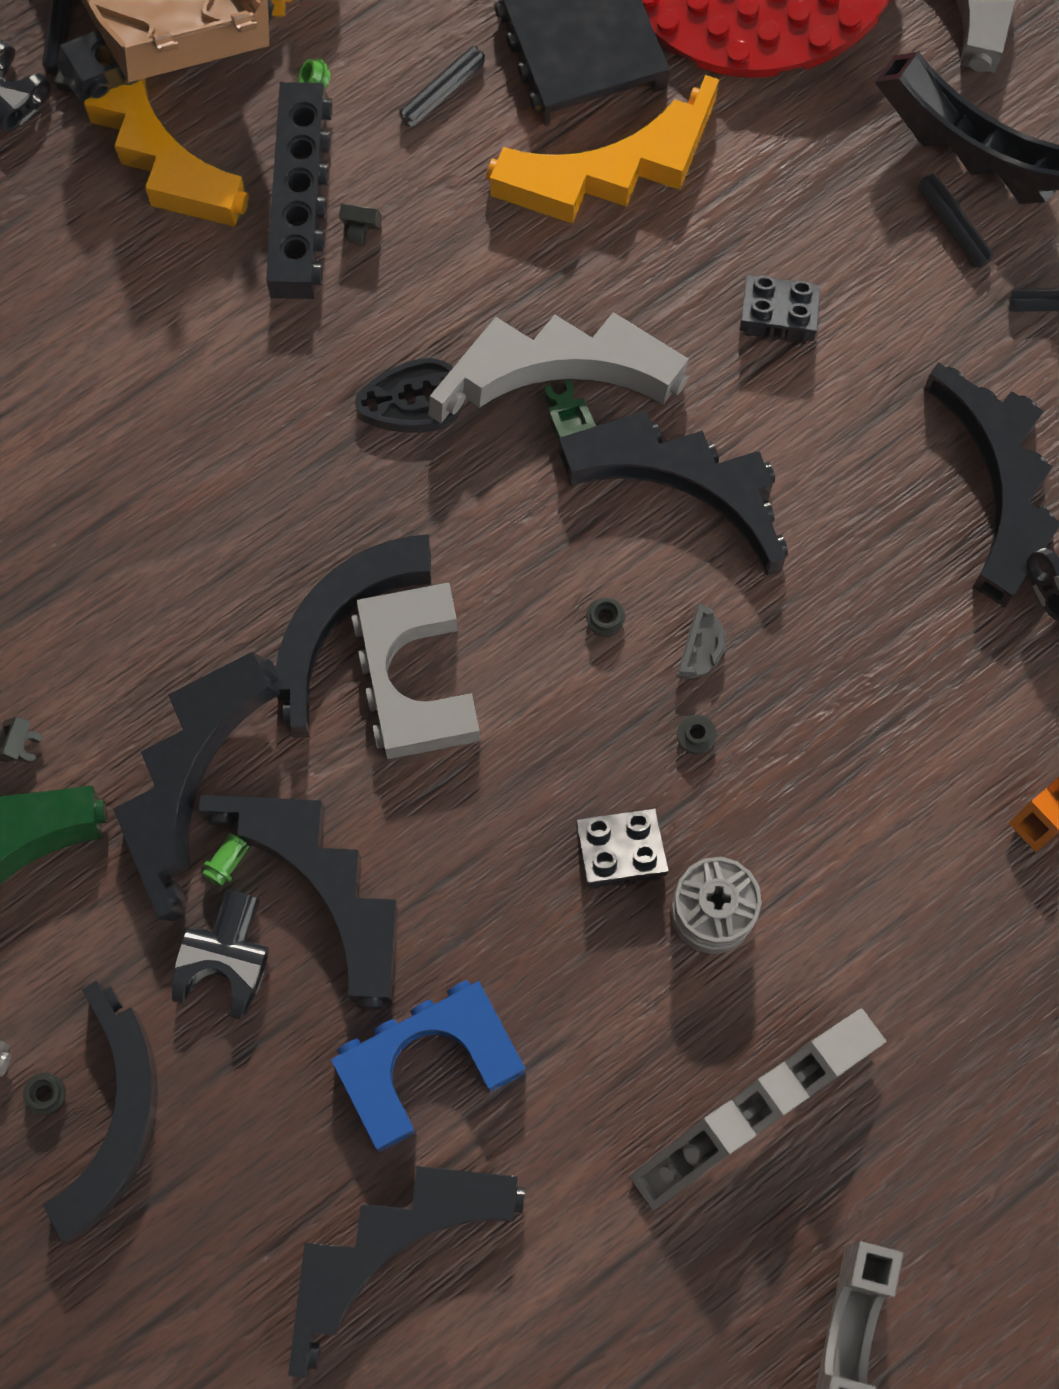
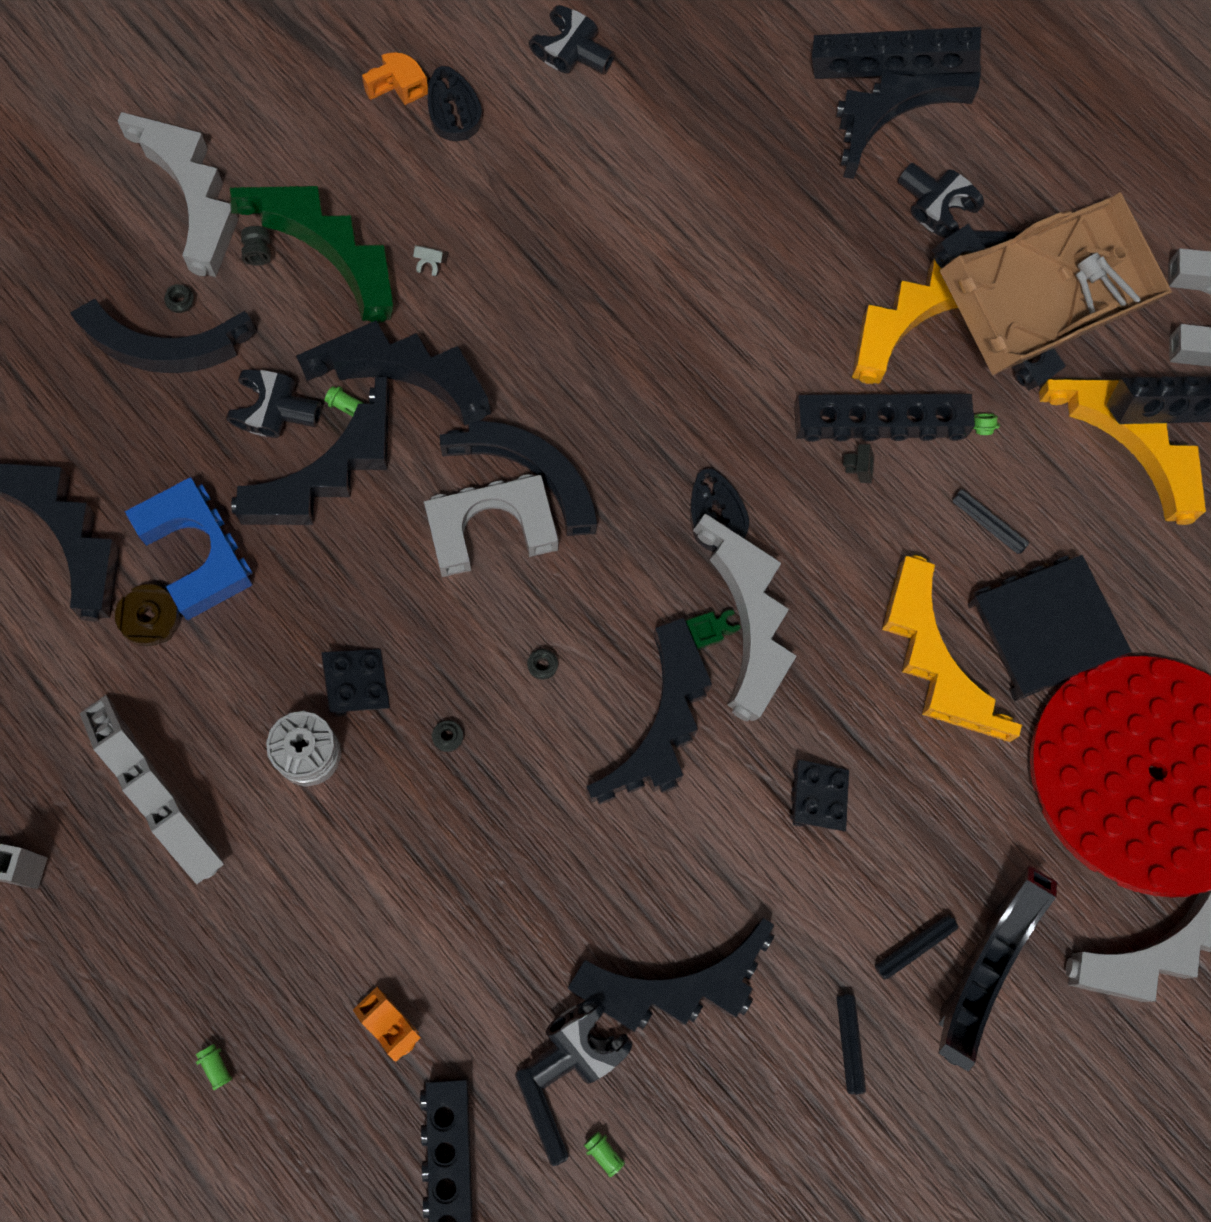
camera: 80 degrees right, 0 degrees up
(504, 1104) = (136, 603): none -> dark brown plate
(704, 644) = (521, 739): dark grey plate -> none

